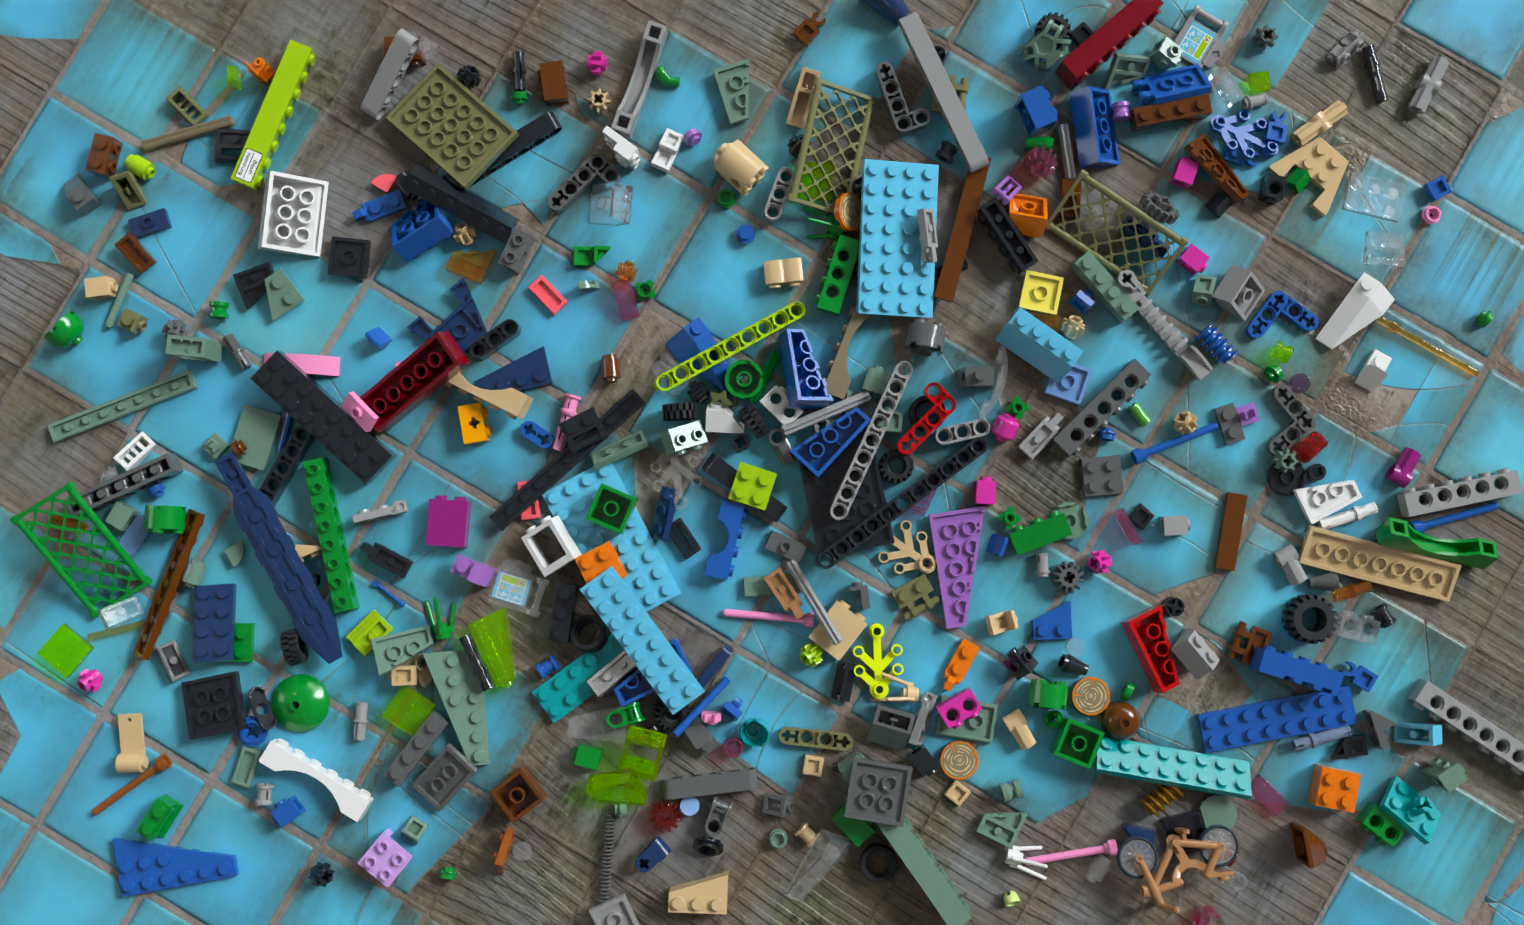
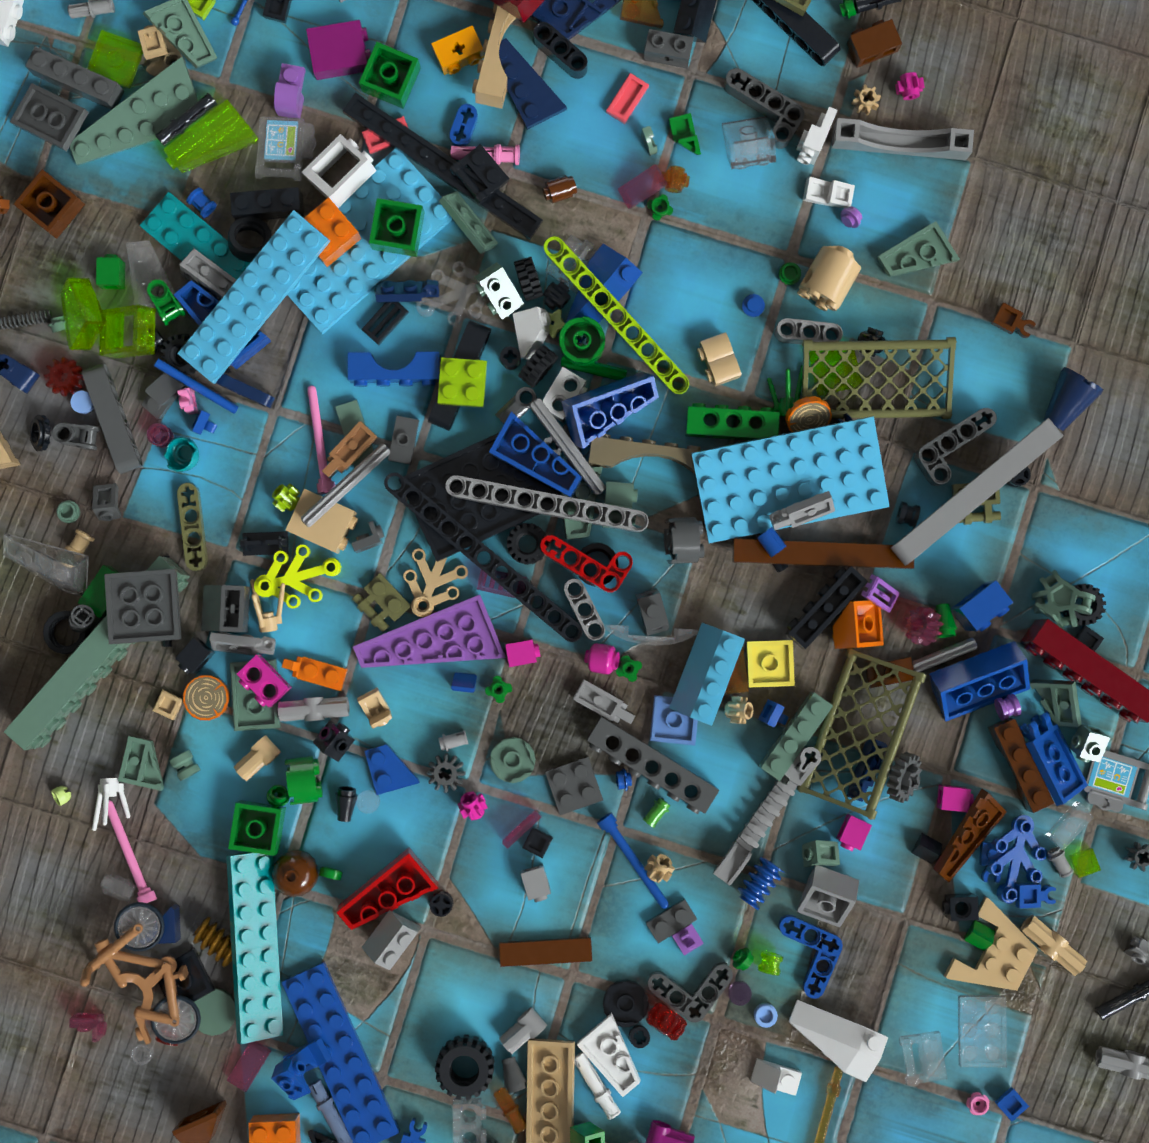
camera: 75 degrees right, 0 degrees up
(440, 629) = (215, 73): green plant -> none
(481, 484) = (389, 75): none -> green brick
(664, 79) = (911, 168): green arm -> none
(802, 98) = (931, 330): tan slope -> none
(812, 765) = (161, 531): tan tile -> none
(872, 851) = (81, 623): none -> dark grey wheel
(945, 266) = (771, 542): none -> blue piece
(989, 673) = (313, 709): none -> light grey piece
(1040, 532) = (489, 728): green brick -> none
(1090, 695) = (315, 832): dark tan tile -> none
(1256, 637) = (416, 1010): reddish brown plate -> none
(1280, 757) = (290, 1071): none -> blue tile
(1291, 460) = (638, 999): sand green gear -> none
(1296, 670) = (400, 1064): blue wedge -> none
(1321, 366) = (765, 1015): none -> light blue tile

